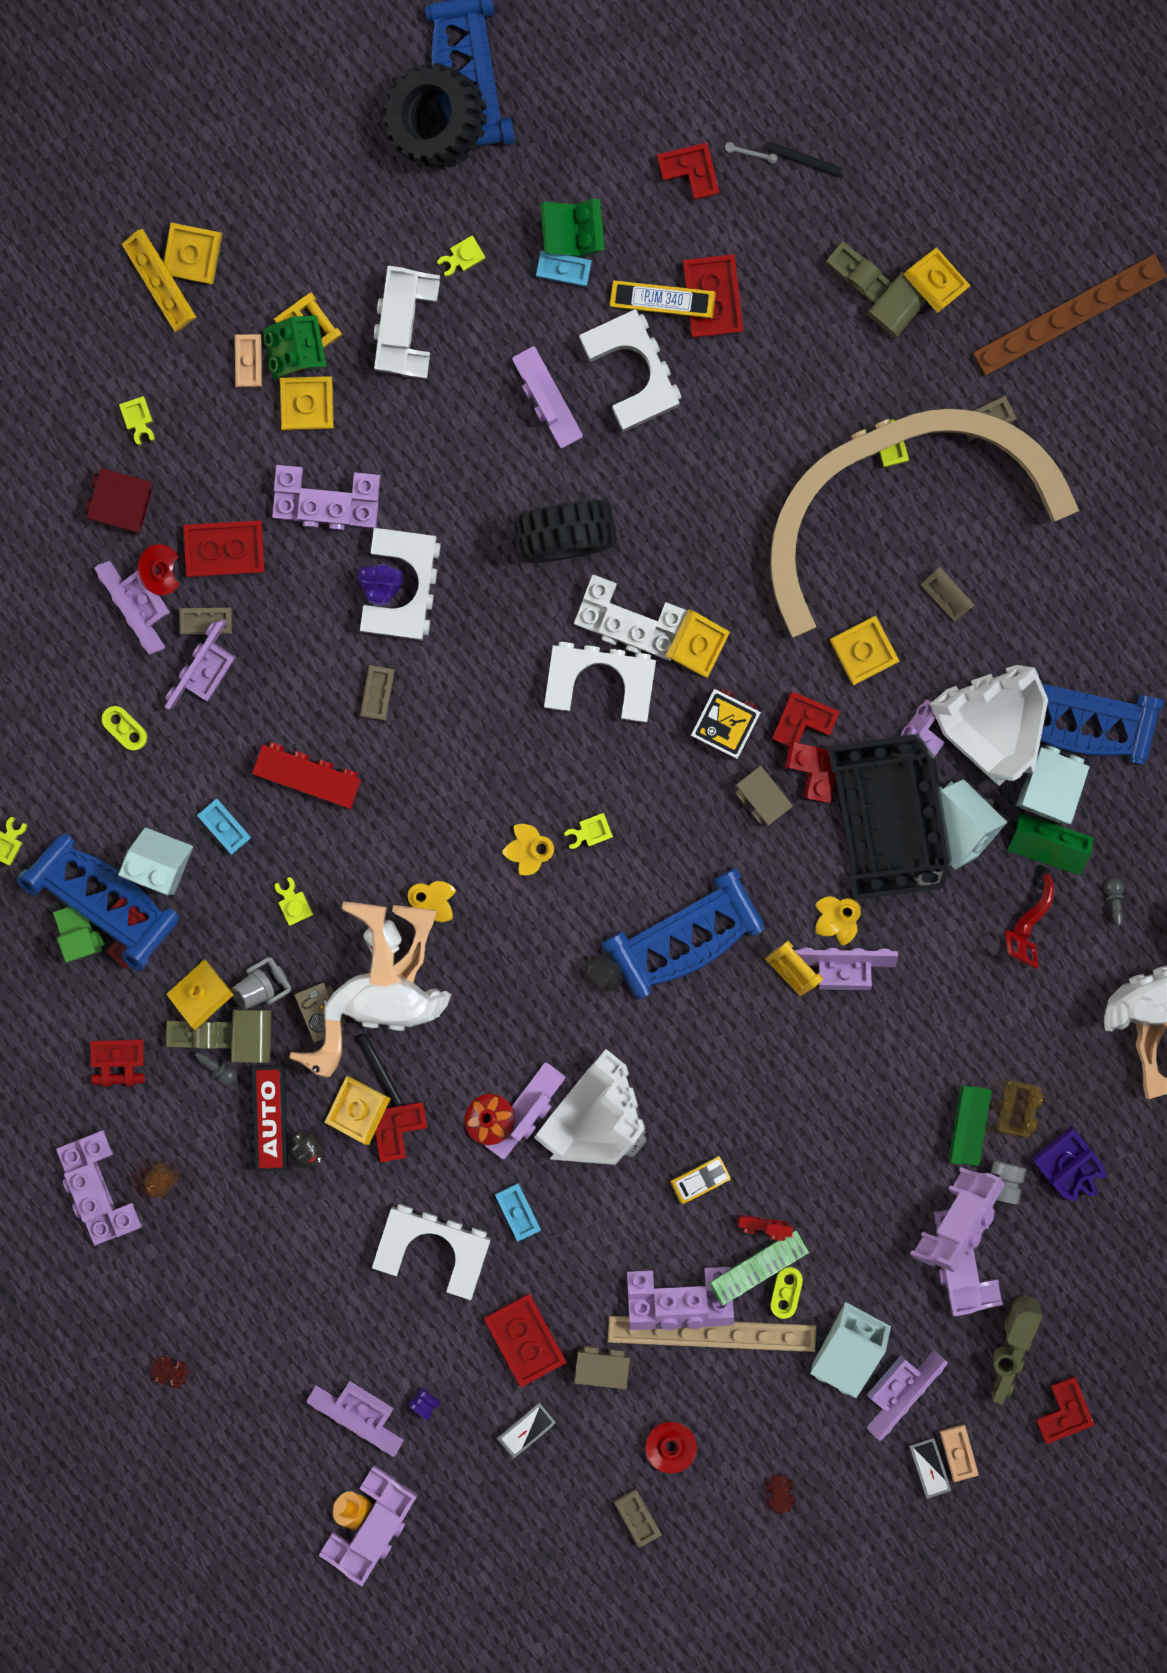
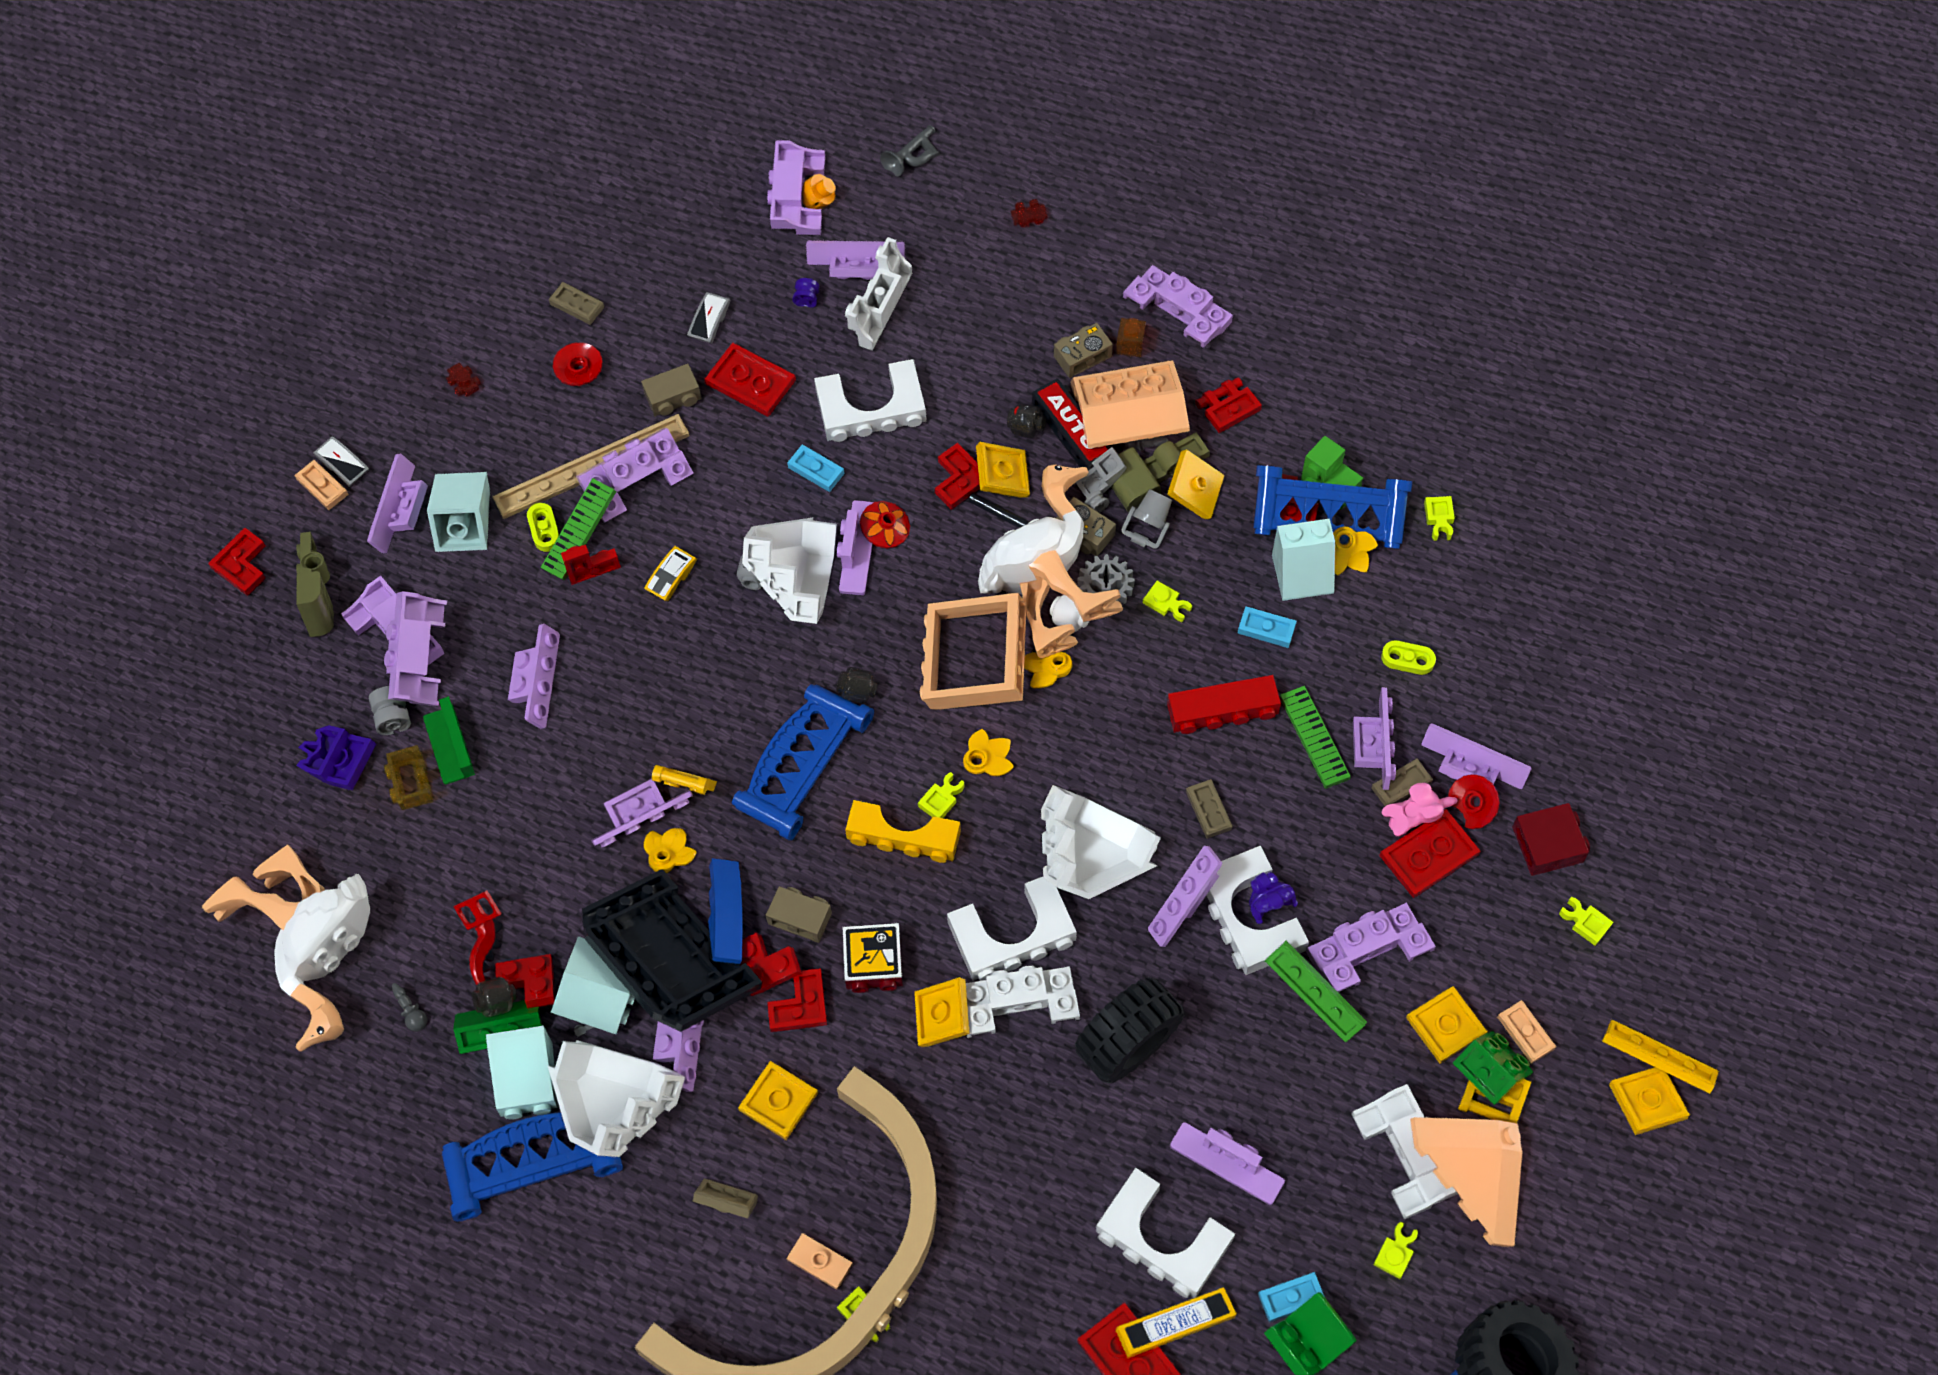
camera: 155 degrees right, 25 degrees down
(106, 851) = (1354, 552): none -> yellow plate
(208, 585) = (1420, 808): none -> bright pink animal
(208, 1106) = (1131, 404): none -> light nougat slope
(212, 1193) = (1083, 350): none -> dark tan brick
(249, 705) = (1315, 737): none -> bright green tile
(258, 1504) = (894, 161): none -> dark grey piece
(275, 1051) = (1104, 473): none -> light grey slope
(295, 1030) = (1097, 501): none -> light grey bush
(322, 941) = (1119, 578): none -> light grey gear
(357, 1357) = (872, 311): none -> white bracket
(364, 274) = (1482, 1166): none -> light nougat slope
(394, 485) = (1316, 991): none -> bright green tile
(451, 618) = (1186, 896): none -> lavender bracket
(455, 921) = (1012, 687): none -> light nougat window
(494, 712) = (1091, 845): none -> white panel
(664, 841) = (935, 839): none -> yellow arch
(821, 830) = (726, 911): none -> blue slope
(867, 1147) = (534, 676): none -> lavender bracket
(901, 505) = (819, 1261): none -> light nougat plate
(1001, 867) = (533, 974): none -> red plate
(1045, 861) = (494, 997): none -> clear smoke head

